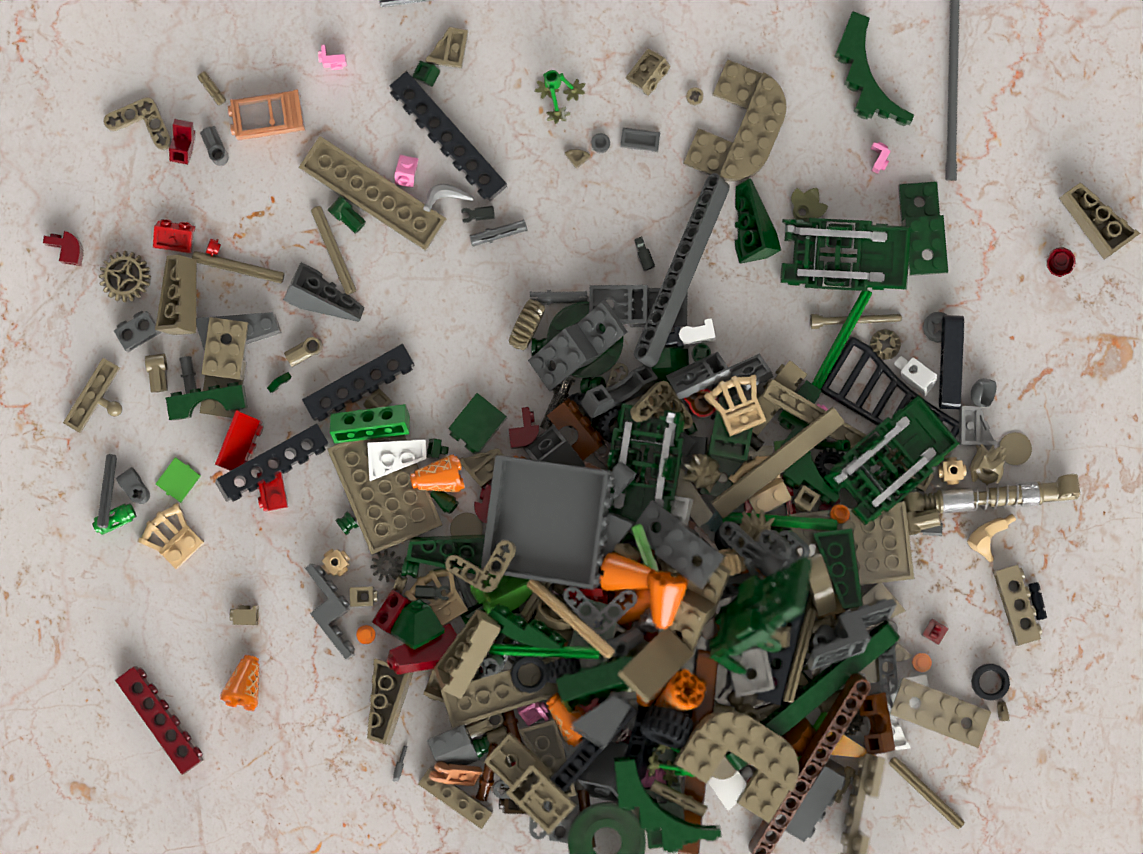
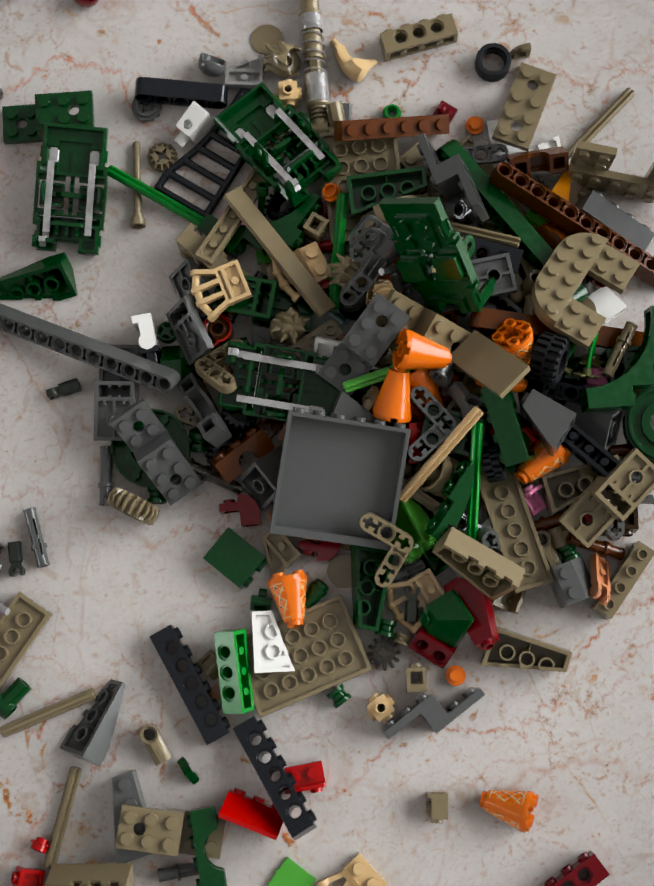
camera: 90 degrees left, 5 degrees down
(399, 766) = (590, 639): dark grey piece -> none
(514, 674) = (502, 486): black tyre -> none
(623, 478) = (292, 400): dark grey piece -> none
(809, 202) = (19, 228): olive plate -> none
(905, 550) = (391, 127): none -> reddish brown arch
(940, 577) = (391, 108): none -> green plate
(1037, 600) = (412, 19): black axle -> none

